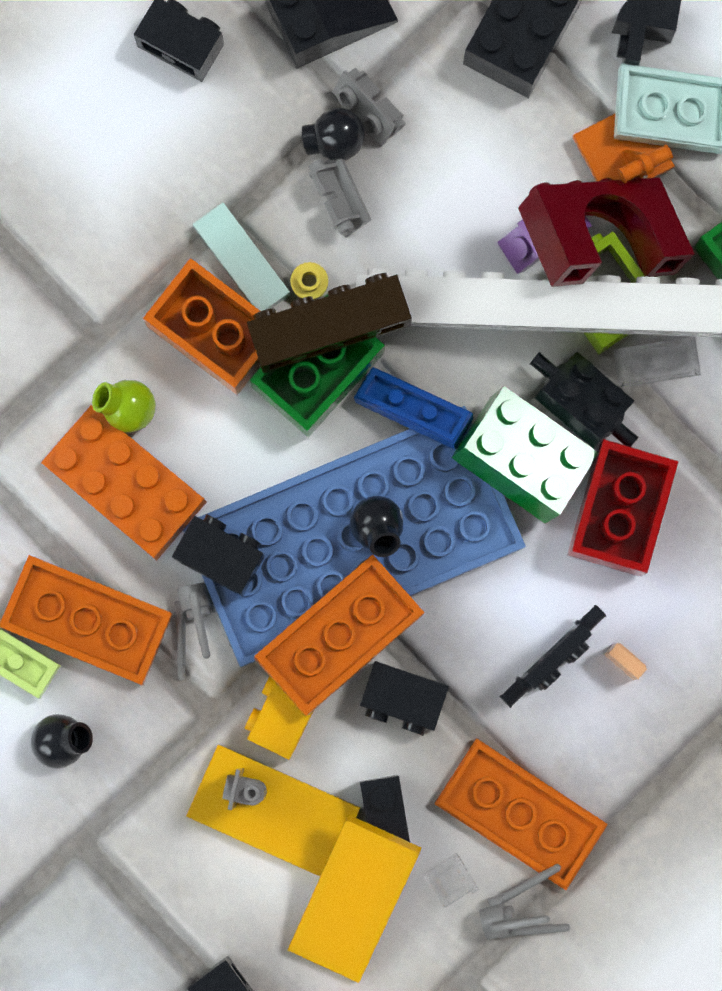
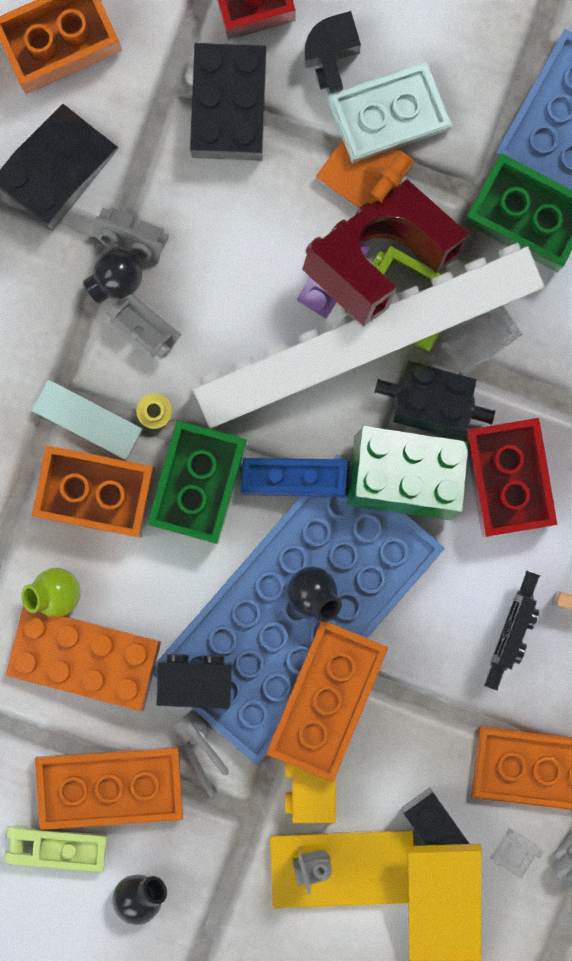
camera: 20 degrees left, 5 degrees up
(330, 322) = (191, 446): dark brown brick -> none
(403, 697) = (404, 723): black brick -> none

